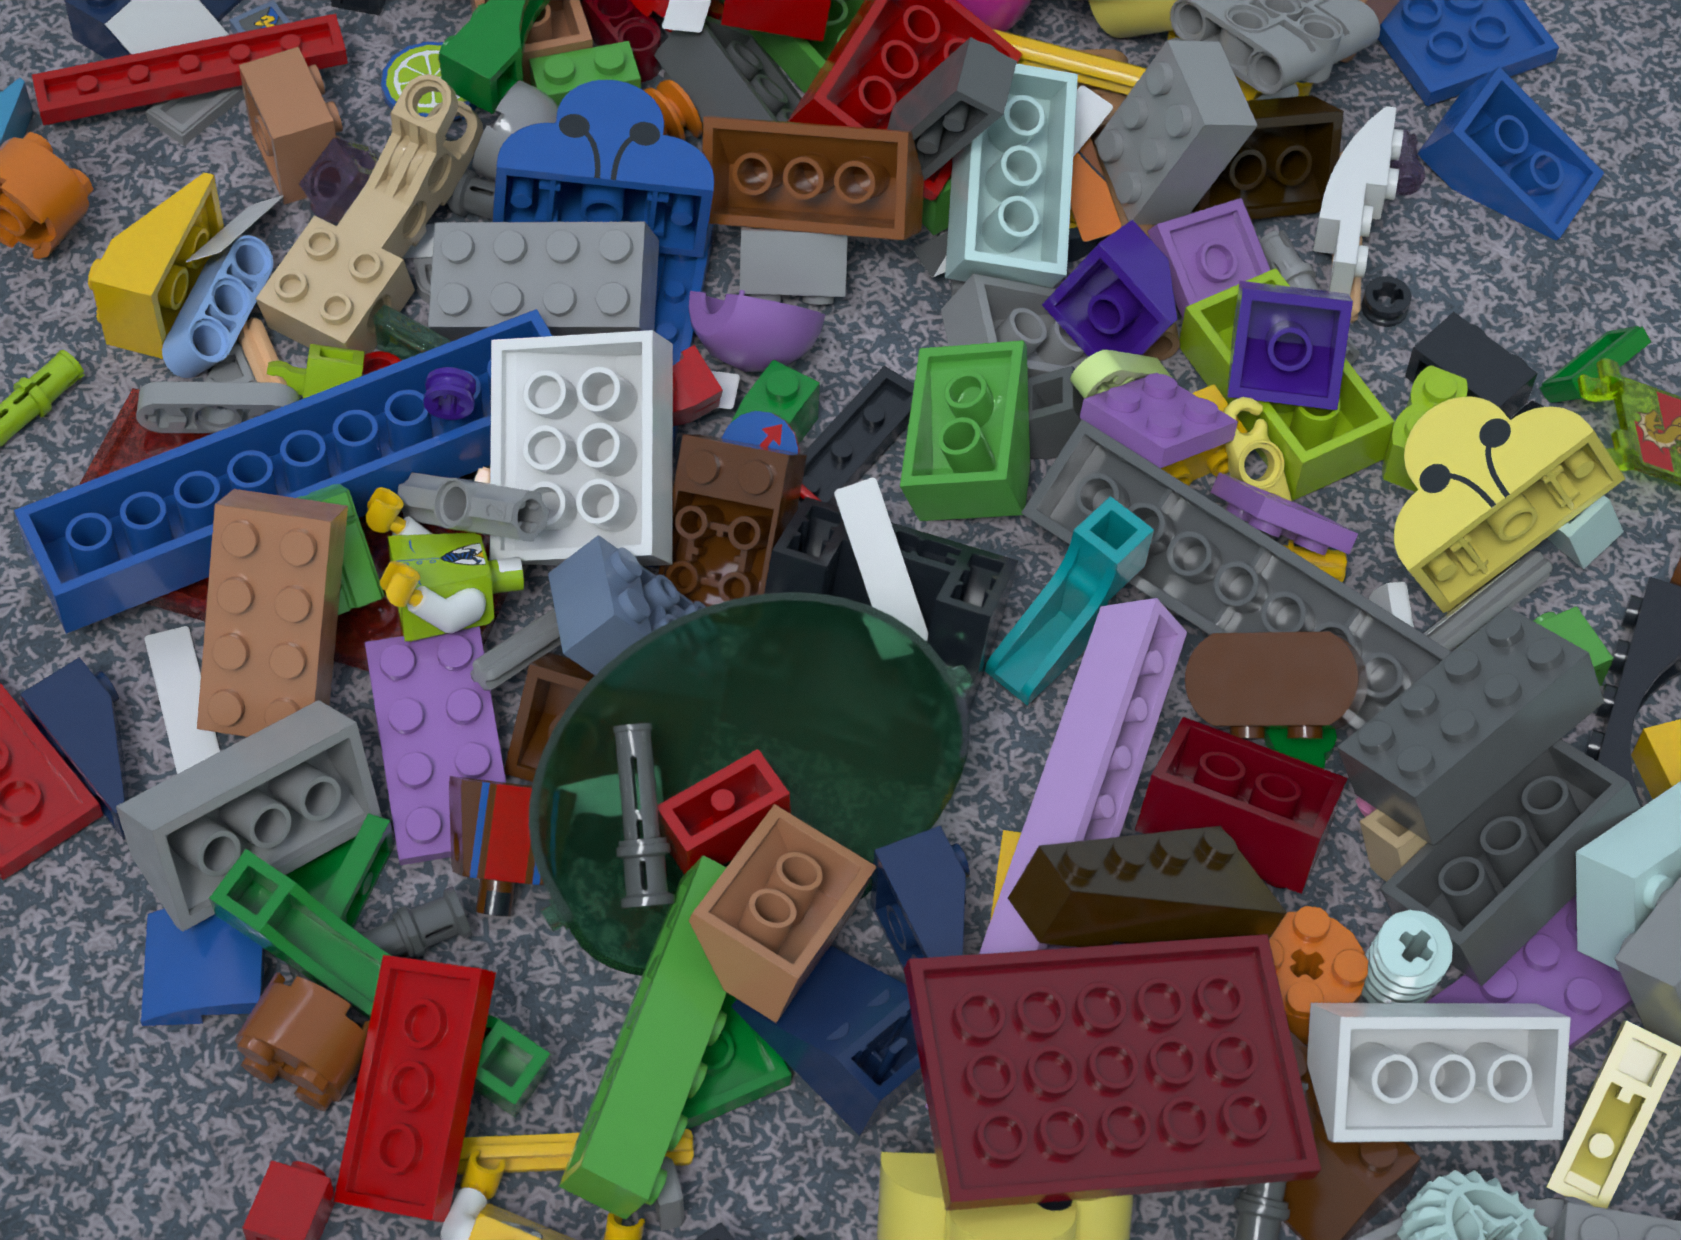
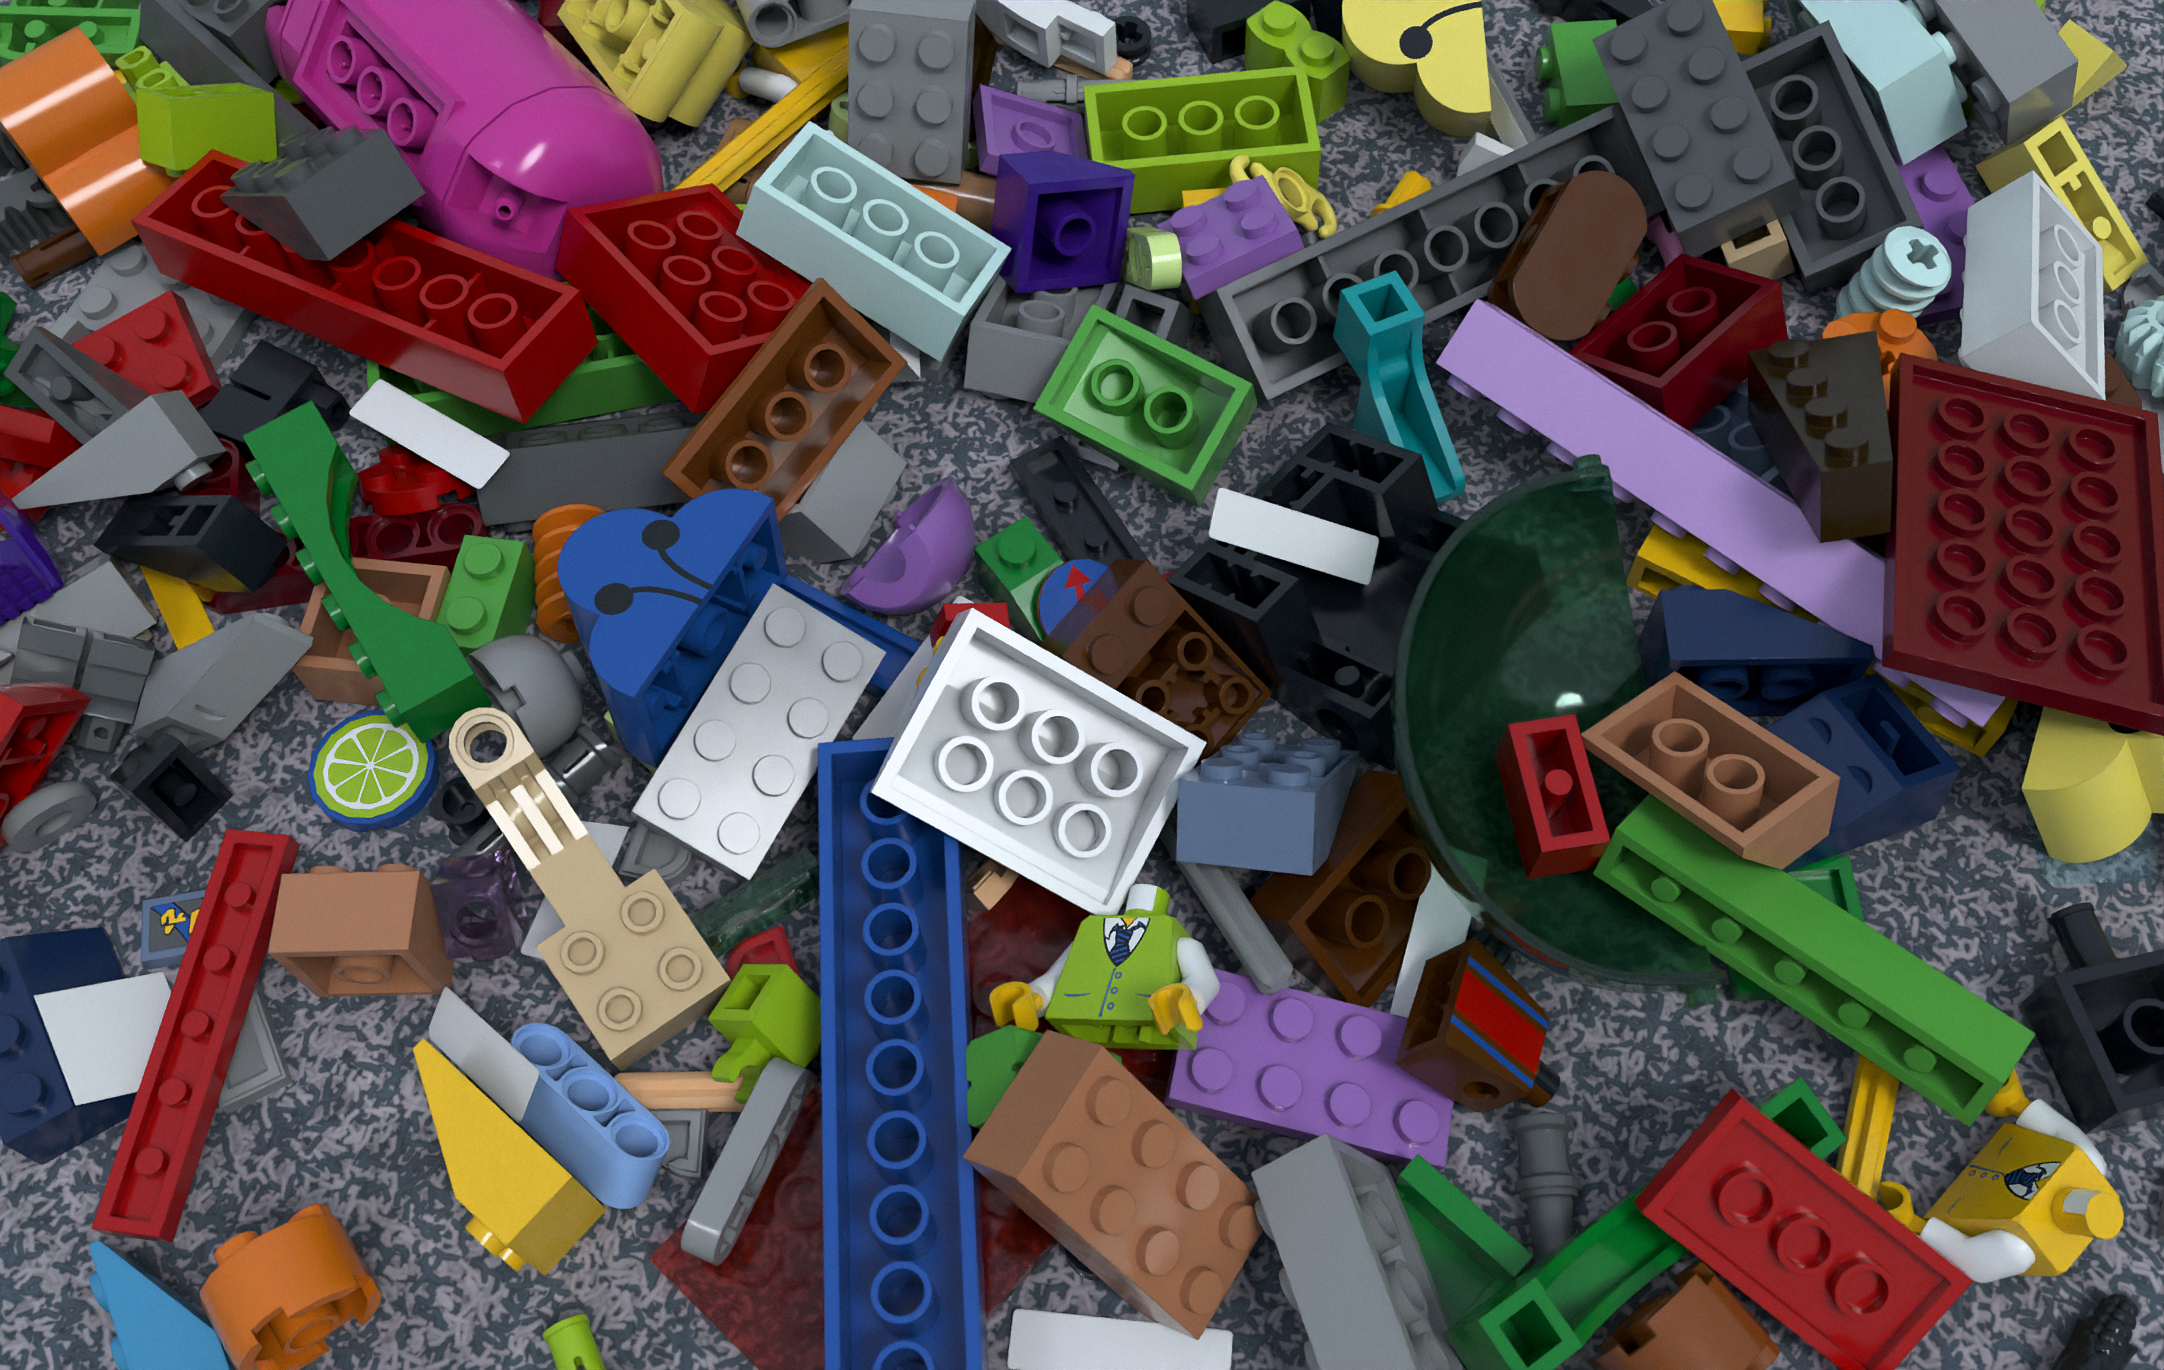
camera: 60 degrees left, 5 degrees up
(449, 393) = (911, 868): dark purple bush -> none
(473, 506) = (1088, 877): light grey piece -> none
(631, 743) = (1579, 884): dark grey pin -> none
(955, 103) = (808, 222): dark grey brick -> none
(1282, 517) = (1373, 188): medium lavender plate -> none
(1289, 345) = (1195, 97): dark purple slope -> none

